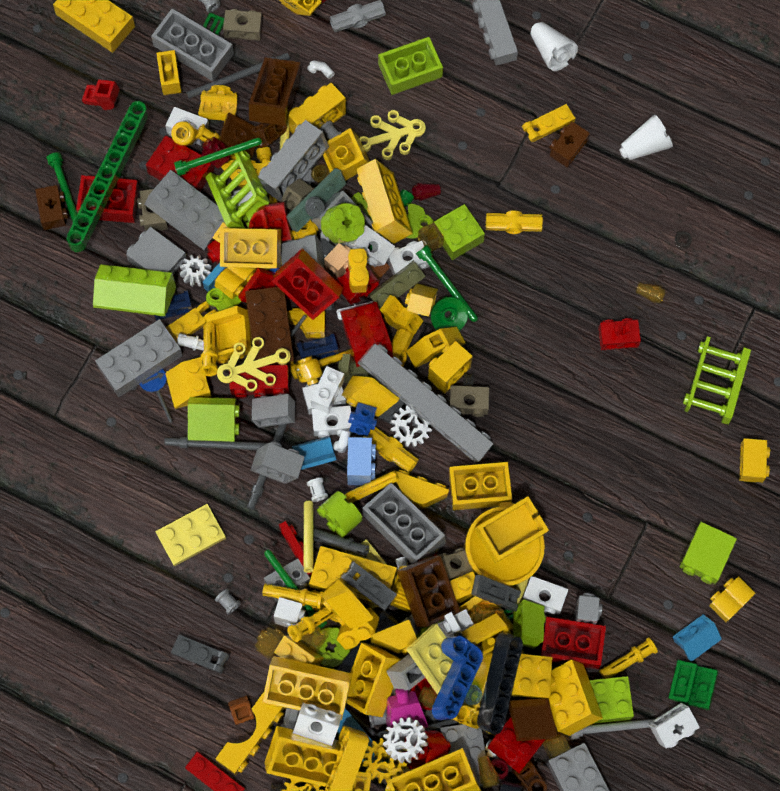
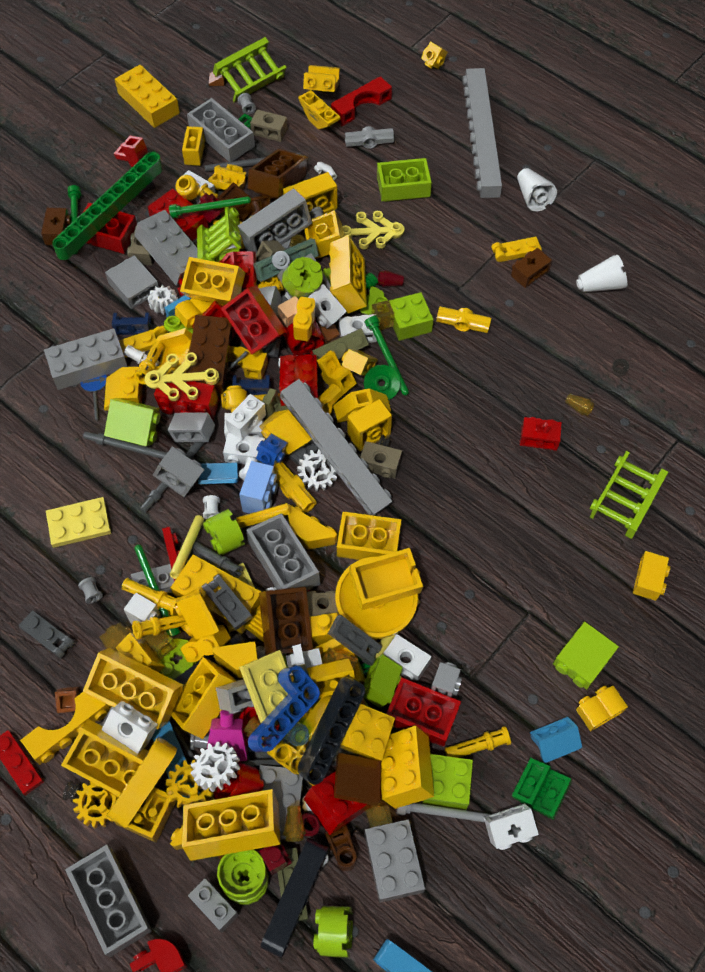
camera: 15 degrees right, 10 degrees down
(133, 290) = (100, 300): lime slope -> none

